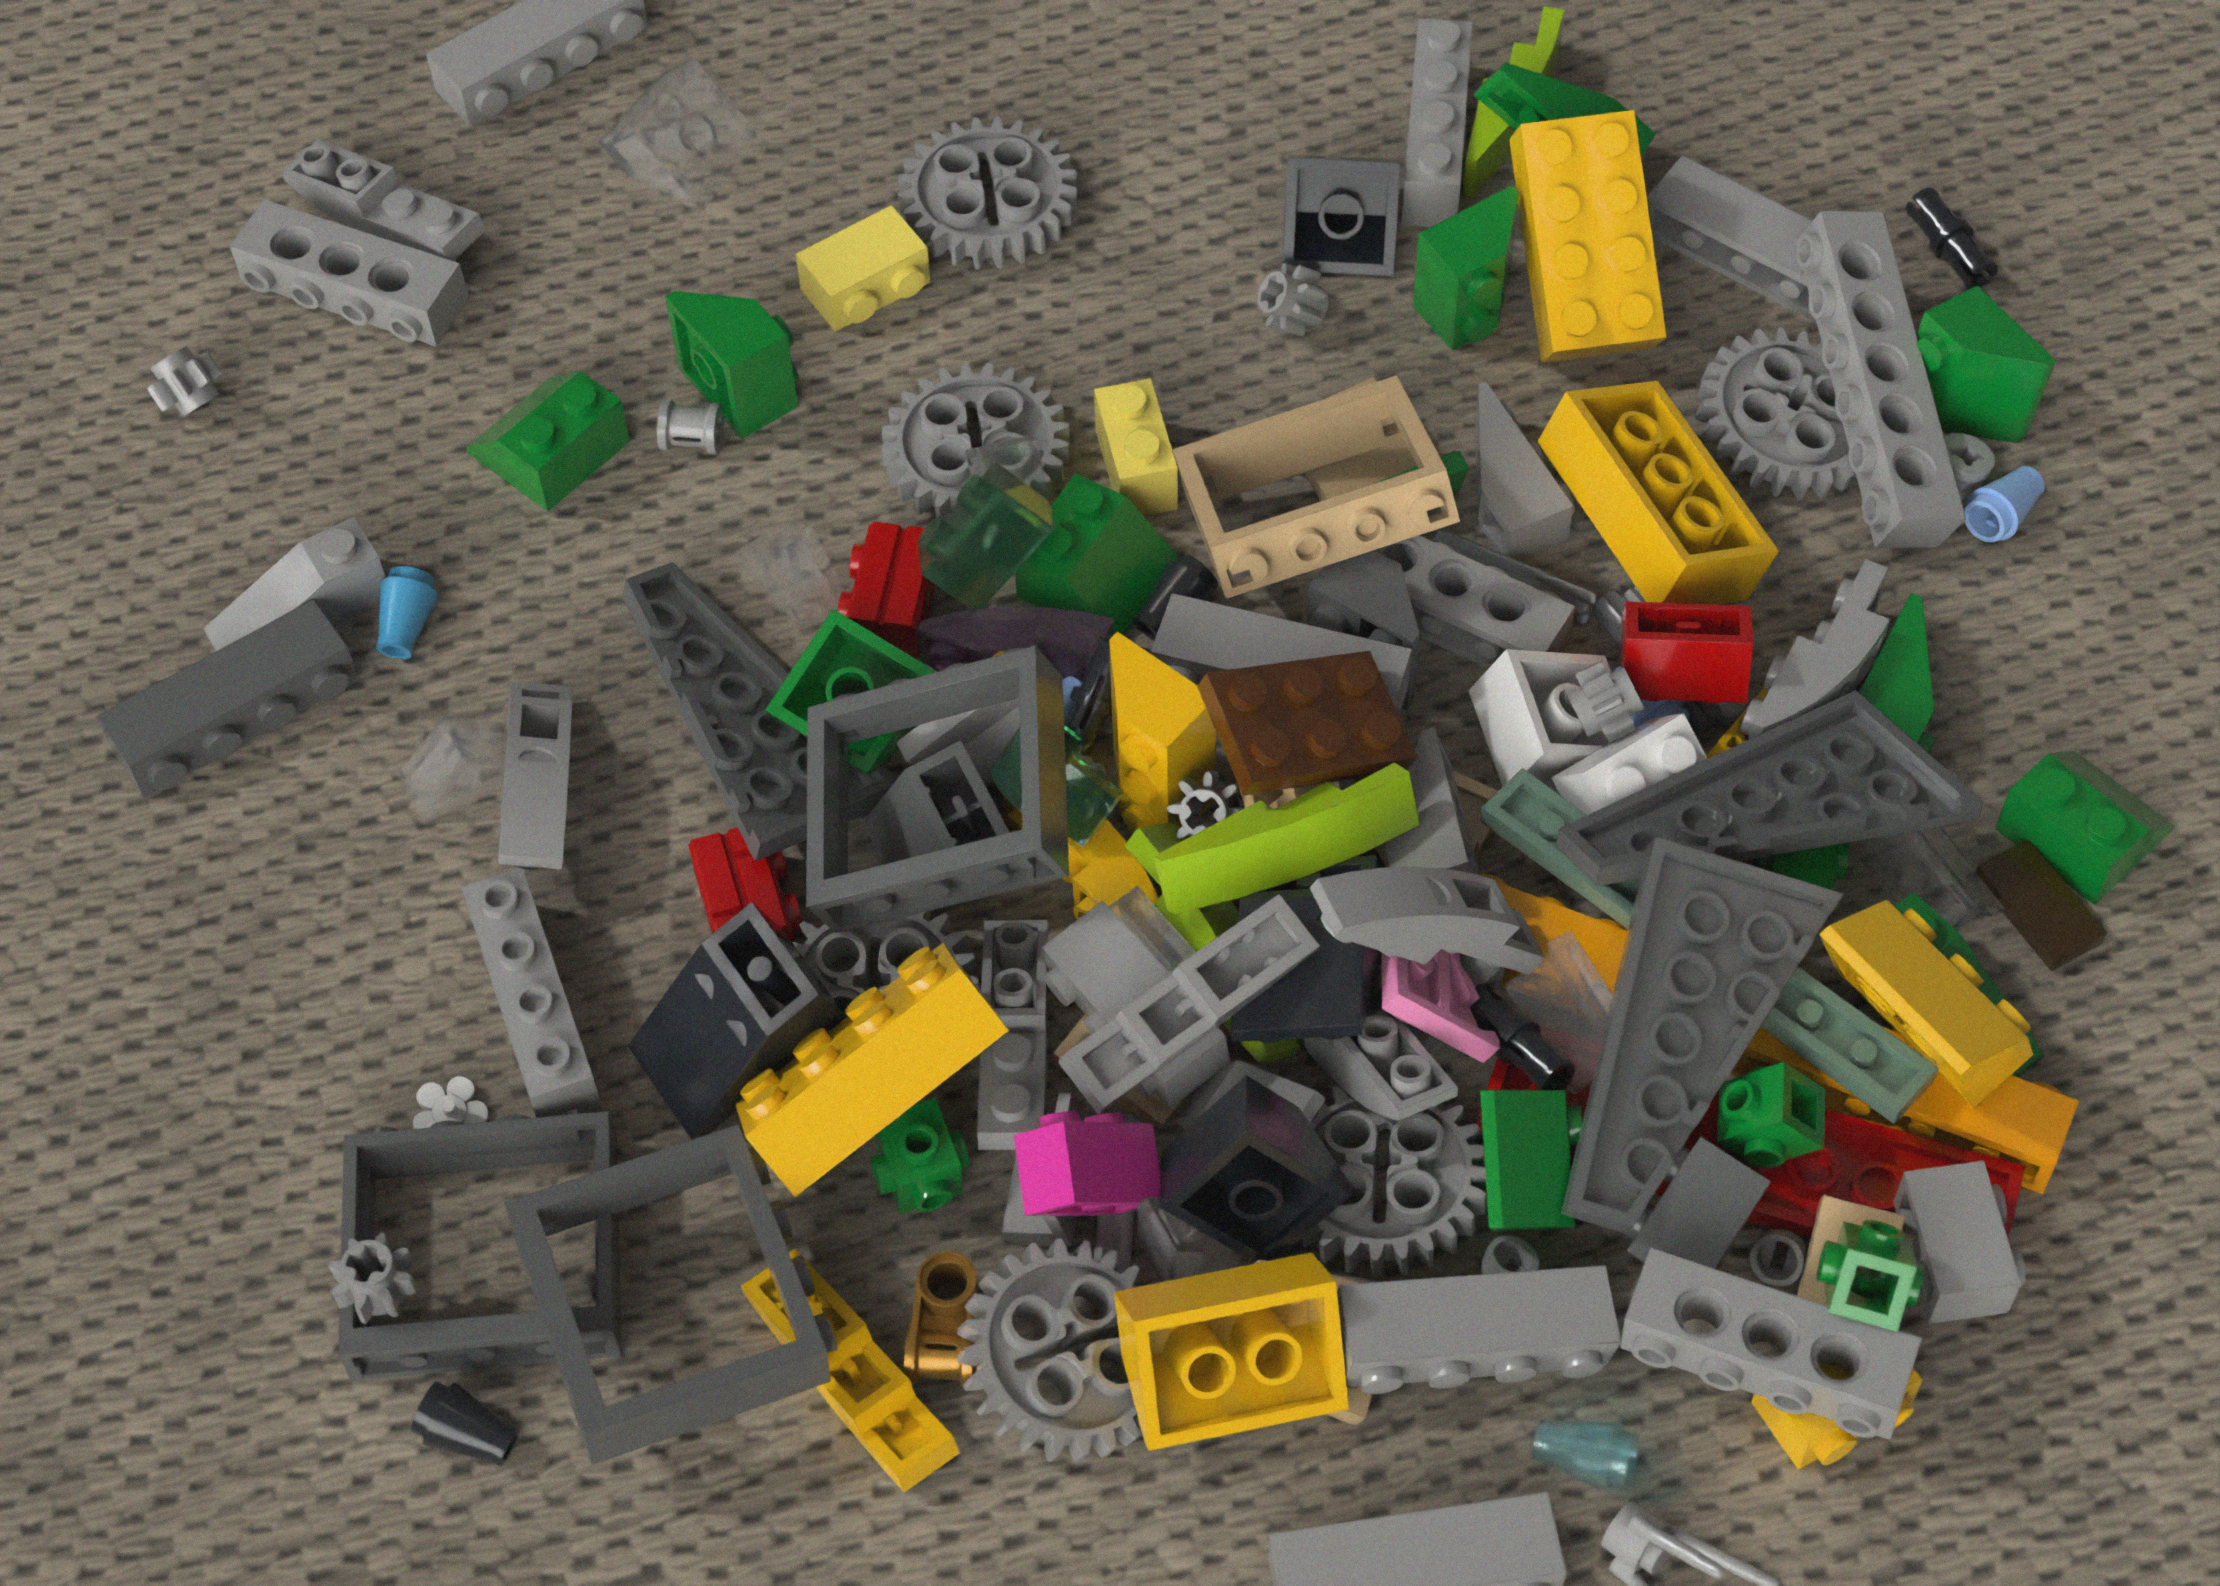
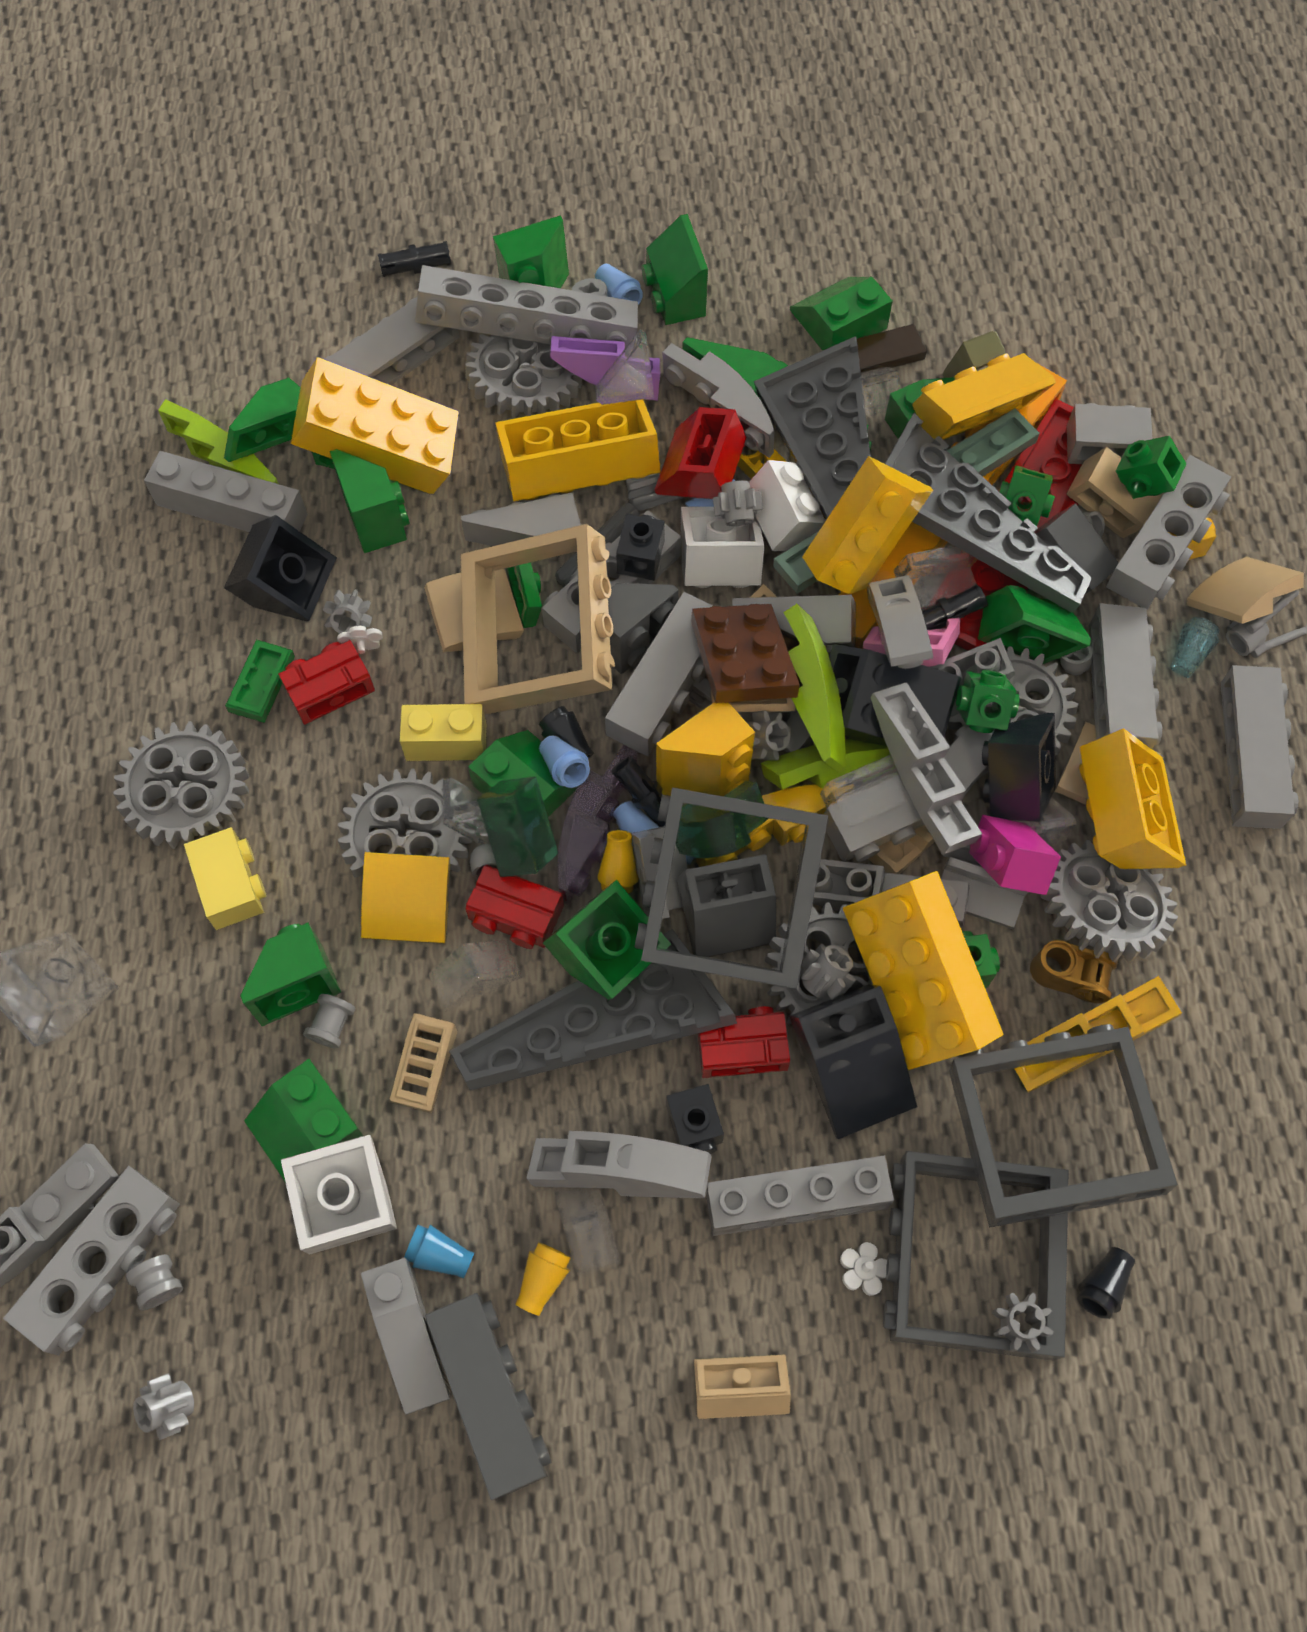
camera: 80 degrees left, 10 degrees up
(274, 988) = (742, 1386): none -> tan slope
(330, 336) = (154, 1282): none -> light grey wheel
(385, 729) = (542, 1277): none -> yellow cone
(452, 479) = (338, 1195): none -> white slope
(621, 859) = (695, 1118): none -> black brick
(691, 557) = (413, 1041): none -> tan slope
(864, 944) = (827, 971): none -> light grey gear
(876, 461) = (405, 897): none -> yellow slope
(1113, 584) = (566, 763): none -> light blue cone
(1166, 236) = (259, 681): none -> green plate
(1182, 303) = (326, 681): none -> red brick
(1258, 325) = (362, 638): none -> white plant
(1331, 1075) = (981, 690): none -> green brick
(1490, 595) = (640, 546): none -> black brick
(1571, 844) = (865, 526): none -> yellow slope
(1717, 1500) = (1245, 589): none -> tan slope
(1799, 525) = (629, 375): none -> clear slope
(1824, 502) = (593, 358): none -> medium lavender slope
(2042, 1004) = (975, 353): none -> olive slope
(2050, 569) = (677, 273): none -> green slope

